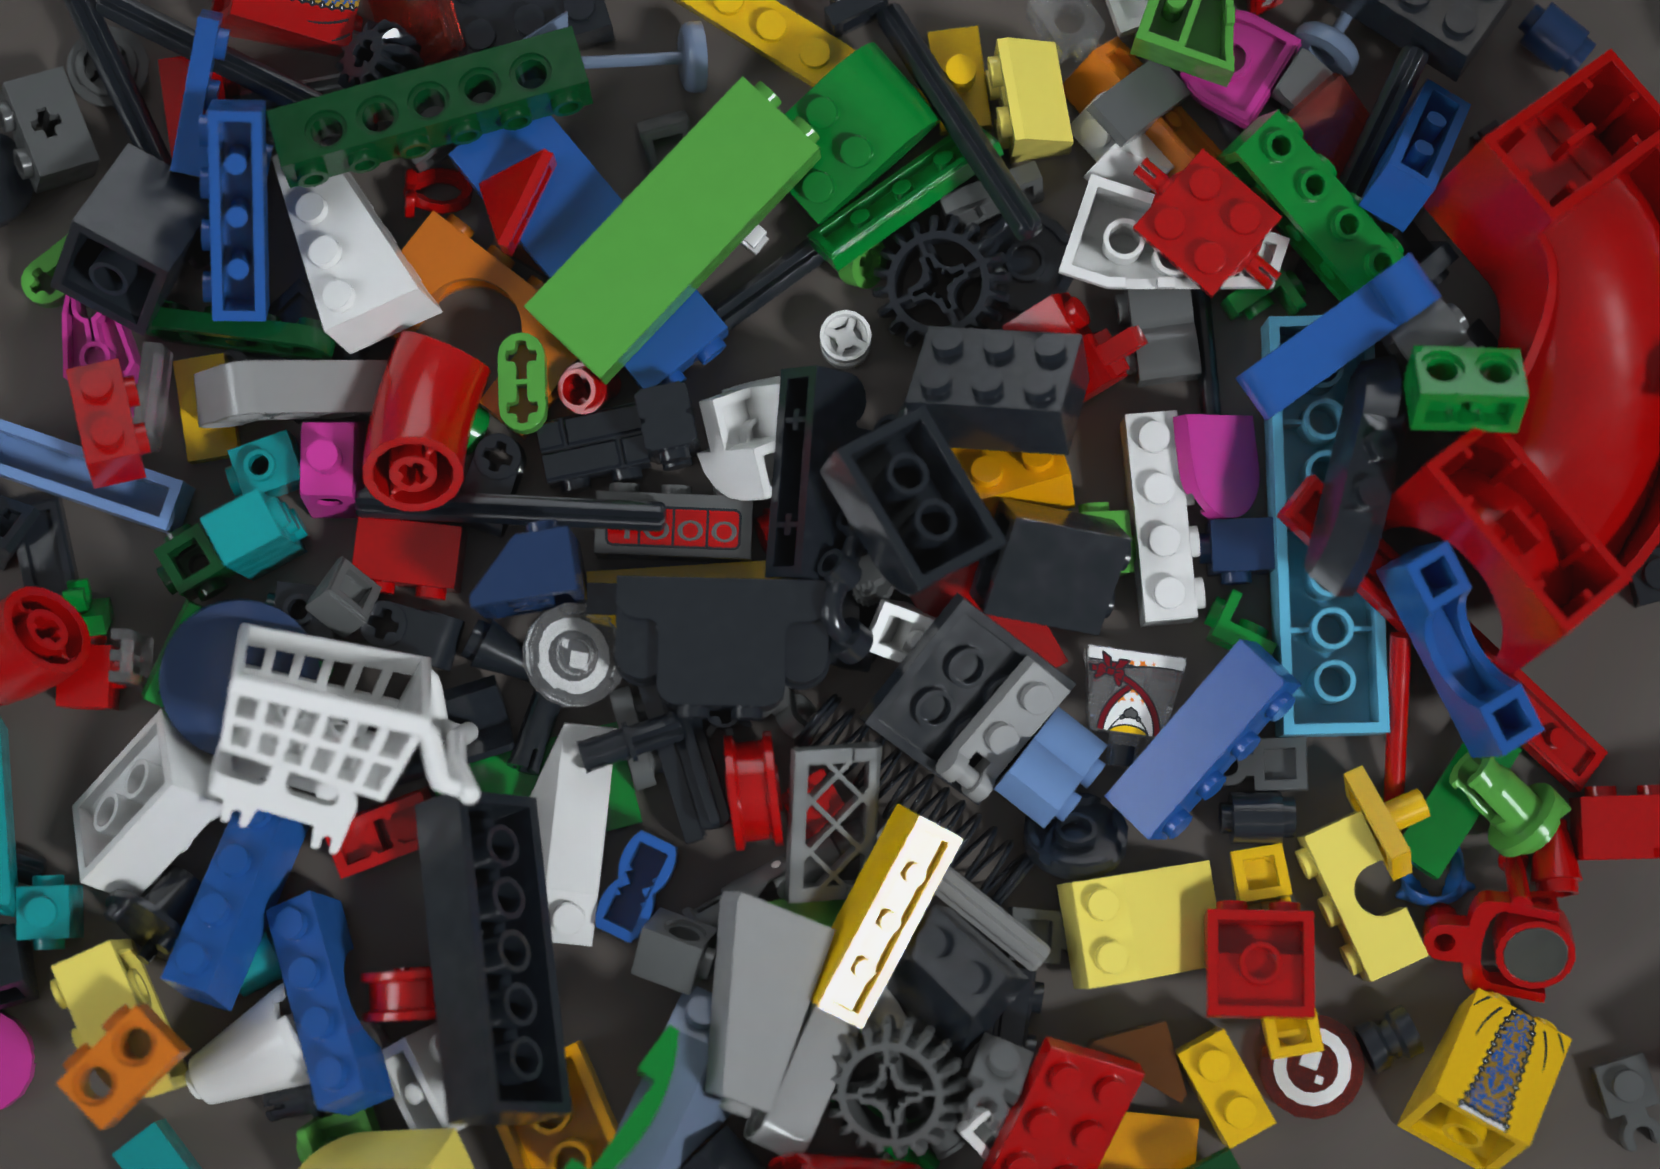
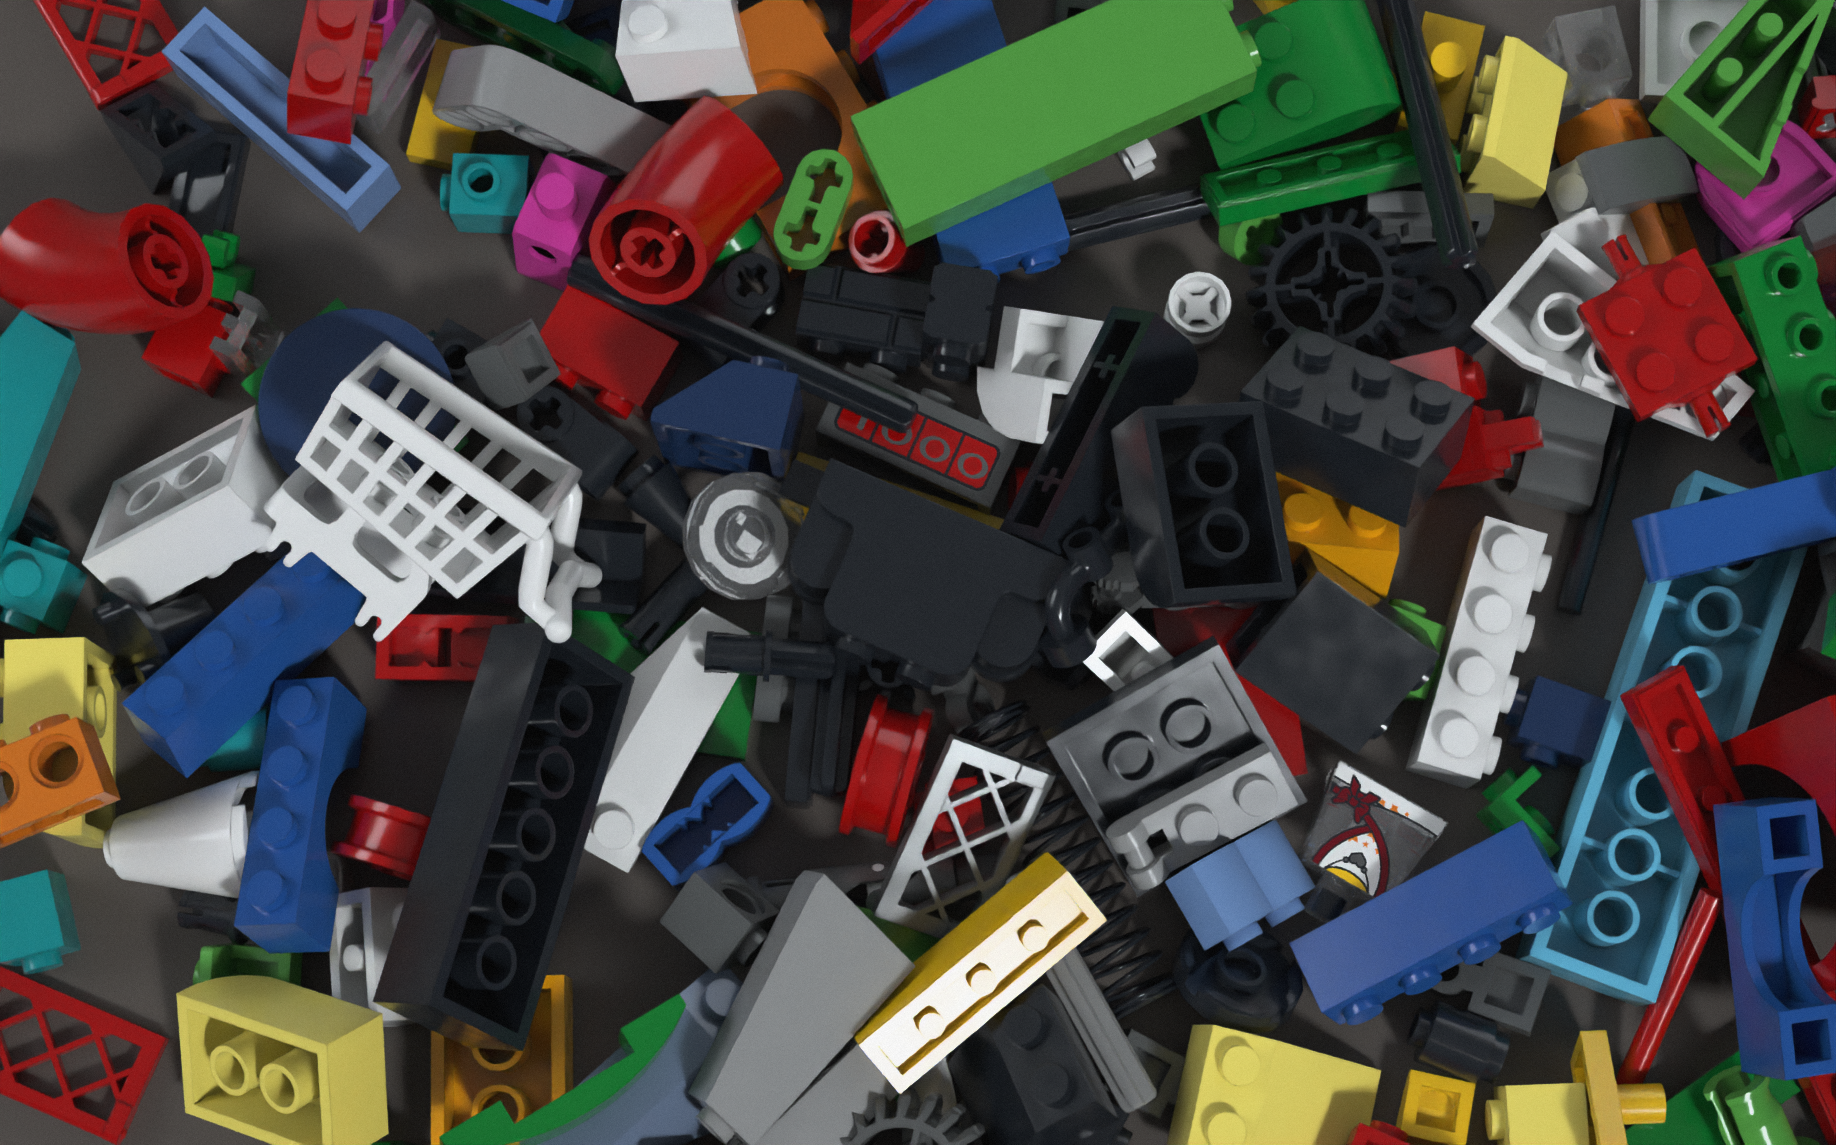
camera: 20 degrees right, 5 degrees down
(177, 558) = (353, 248): dark green brick -> none
(255, 534) = (444, 253): teal brick -> none
(1218, 462) = (1571, 613): dark pink tile -> none
(1253, 302) = (1685, 451): green bracket -> none
(1359, 477) = (1735, 689): black brick -> none

